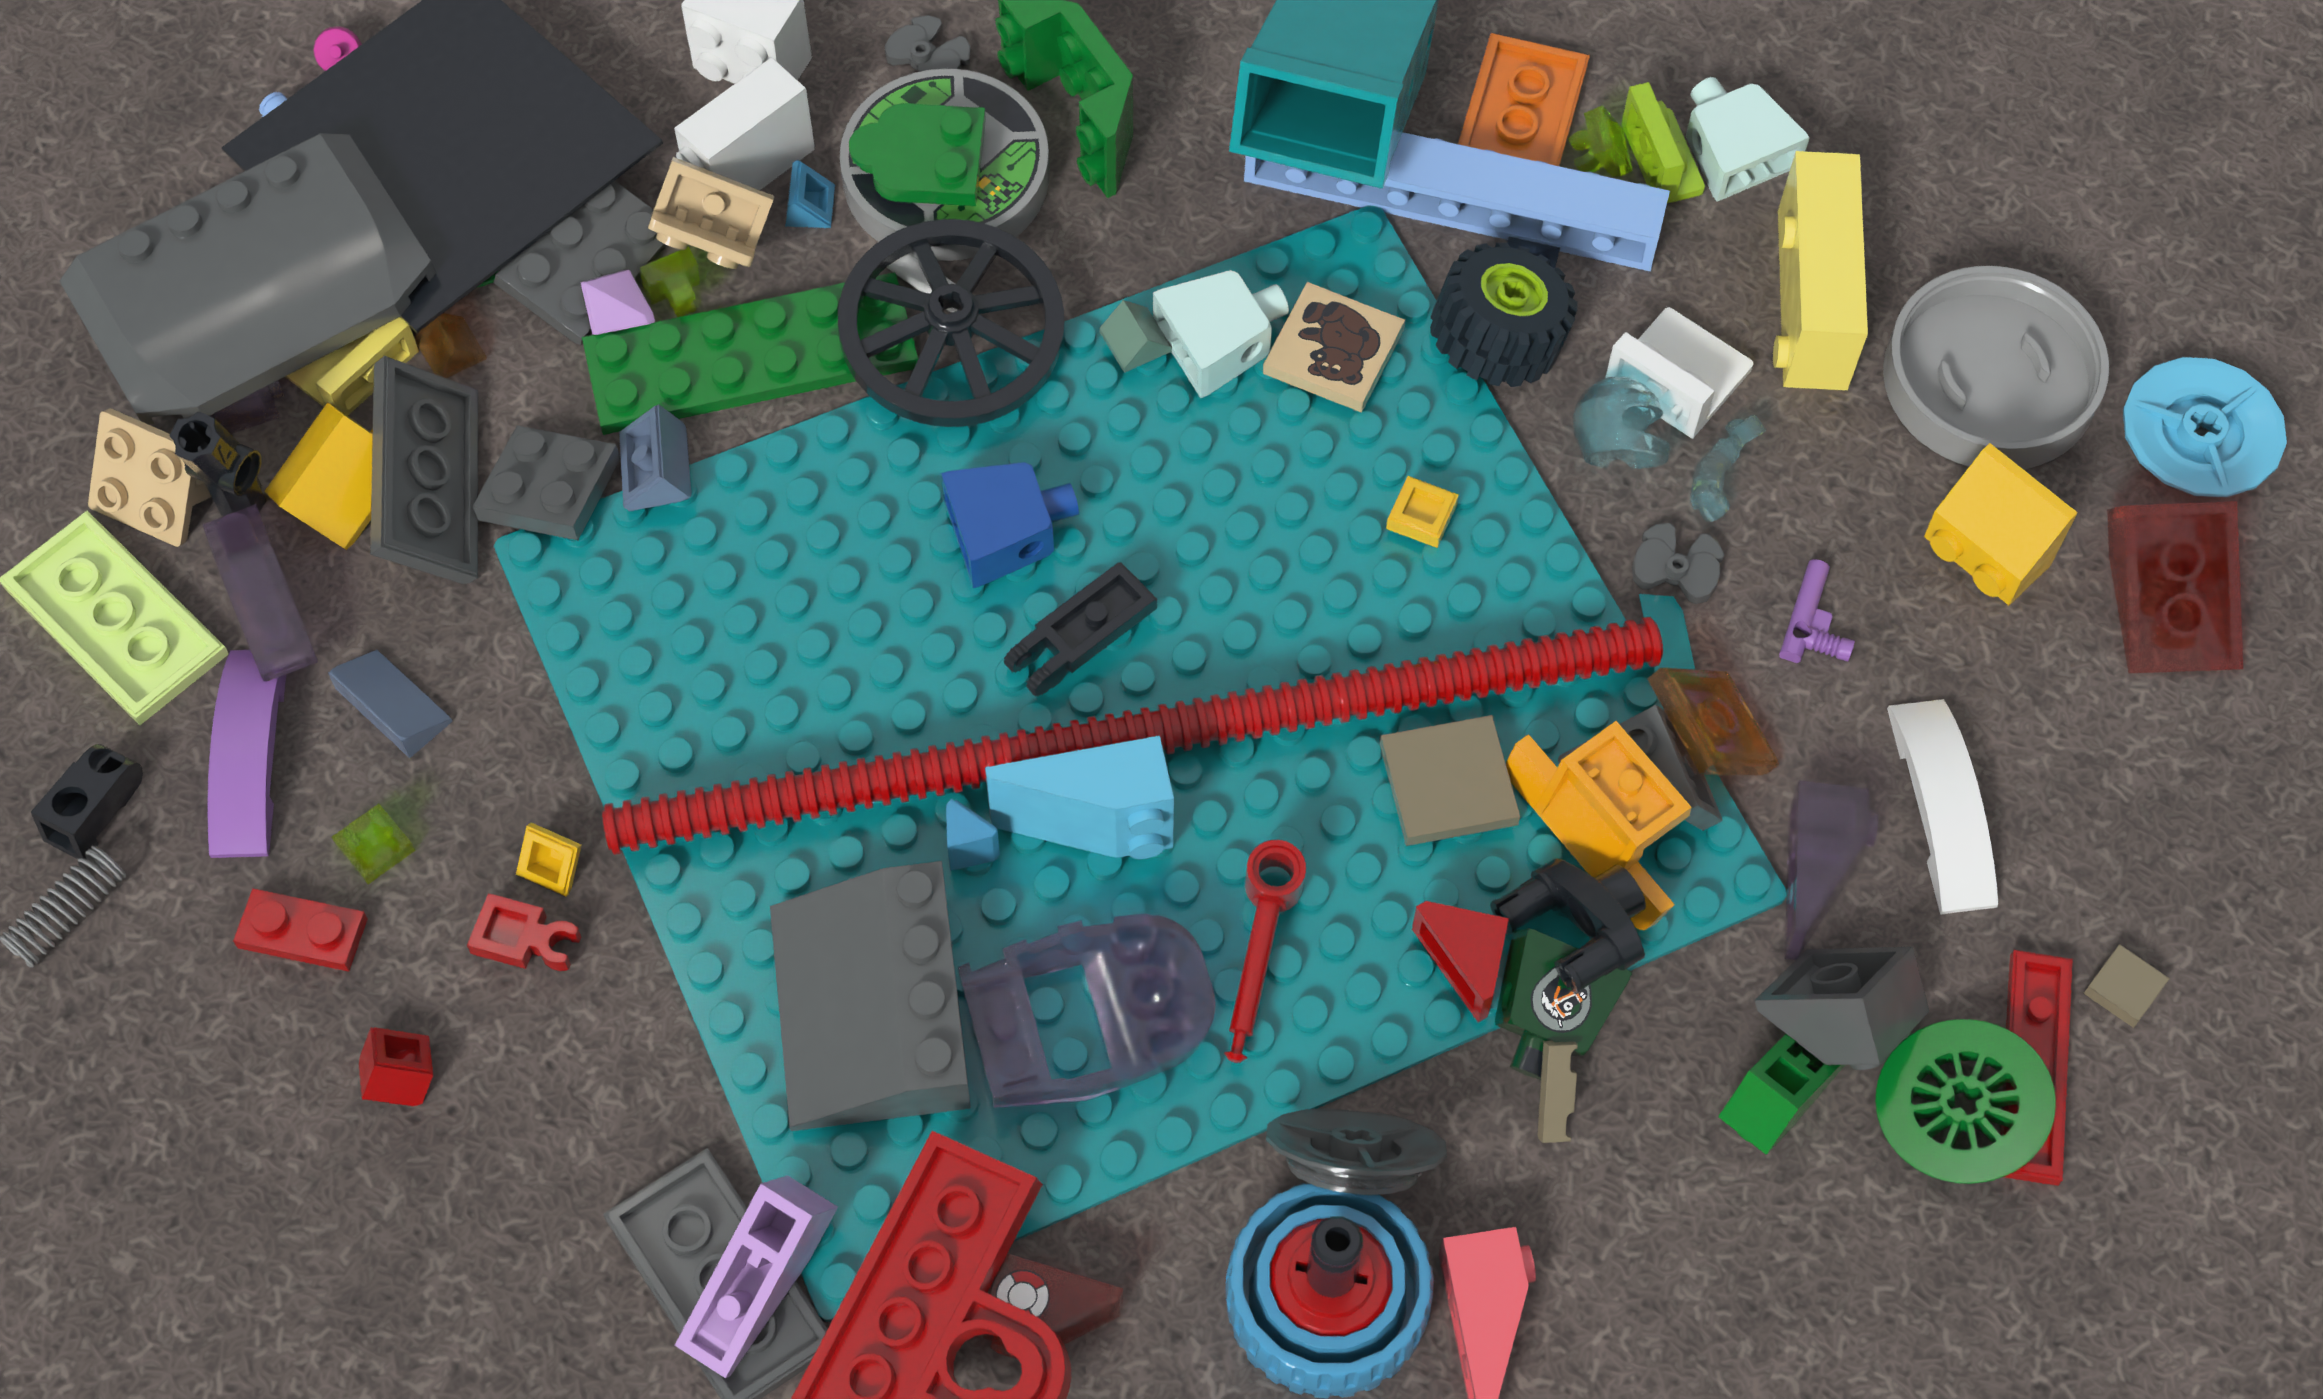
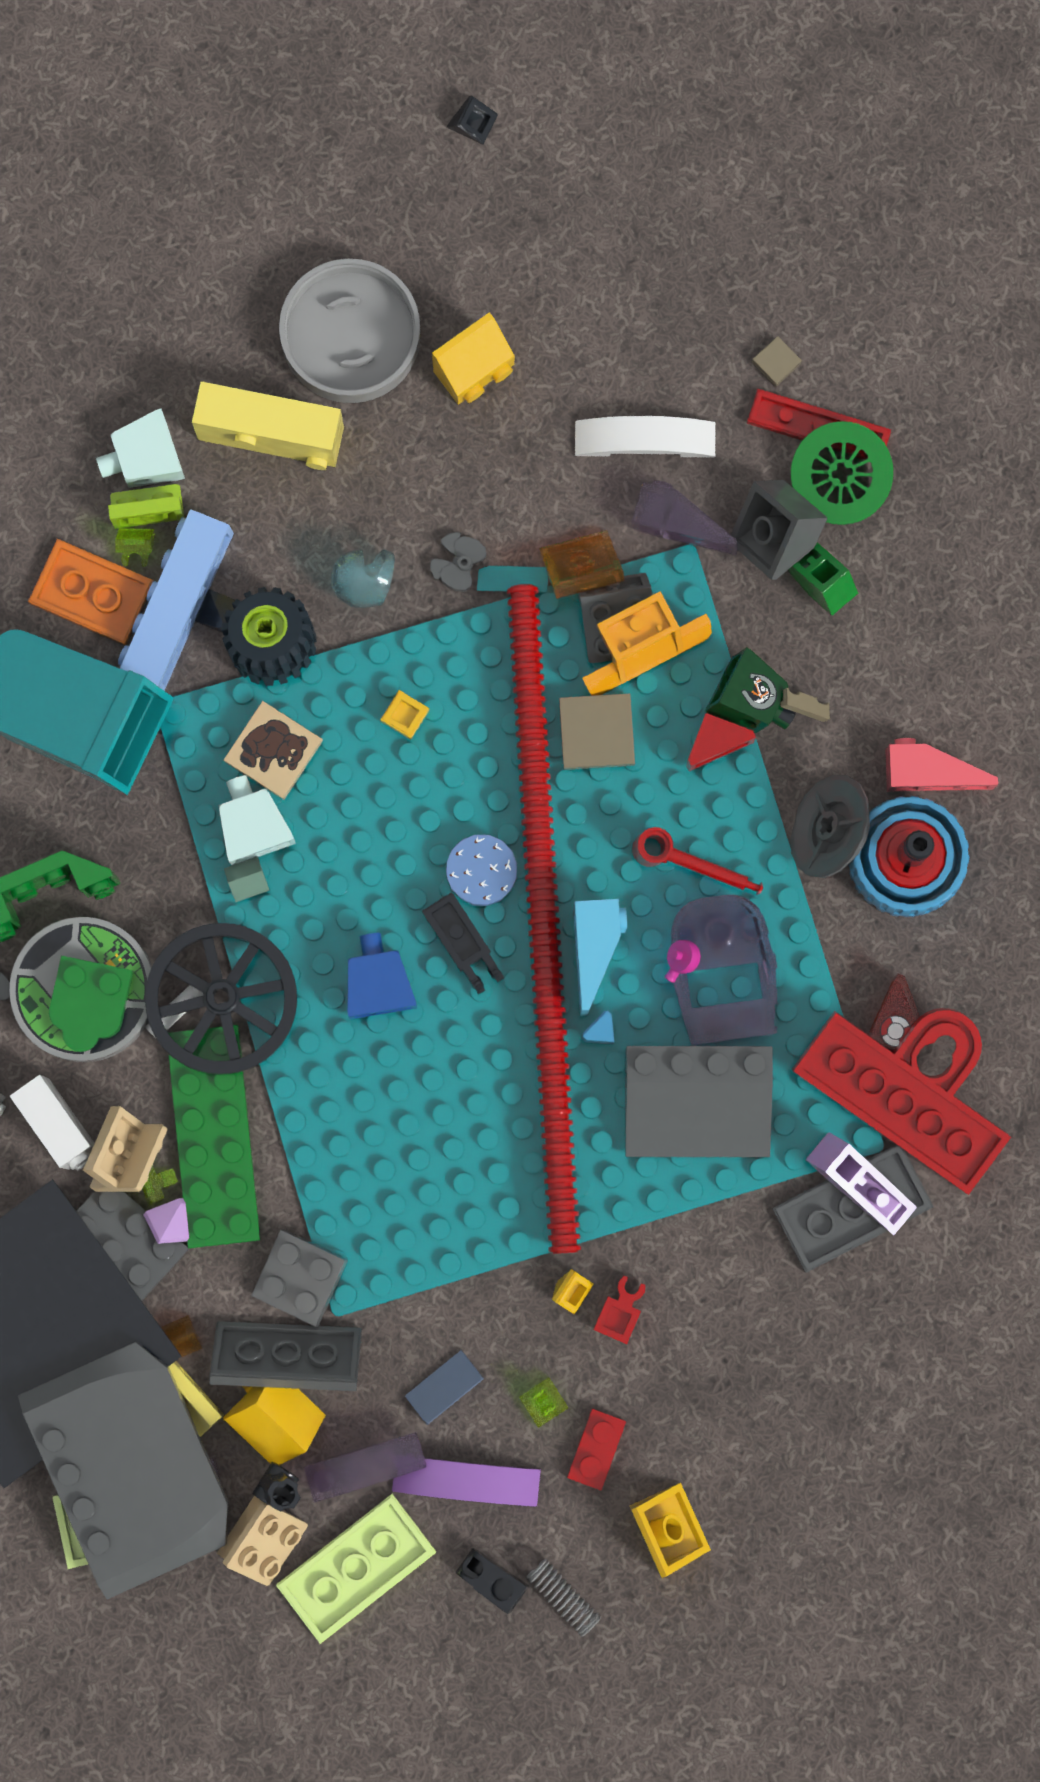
camera: 85 degrees left, 20 degrees up
(166, 1043) = (670, 1529): none -> yellow slope
(395, 1067) = (696, 1392): red slope -> none
(654, 460) = (294, 1206): sand blue slope -> none
(809, 198) = (95, 1086): dark azure slope -> none
(1094, 925) = (682, 958): none -> dark pink piece
(1199, 643) = (481, 870): none -> medium blue tile
(1596, 905) = (702, 658): black connector -> none
(1682, 367) = (319, 530): white bracket -> none
(1710, 471) = (394, 527): clear light blue arm -> none
(1813, 621) = (510, 487): medium lavender hose -> none
(2177, 585) = (520, 259): clear red slope -> none
(2238, 411) = (411, 187): medium azure piece -> none

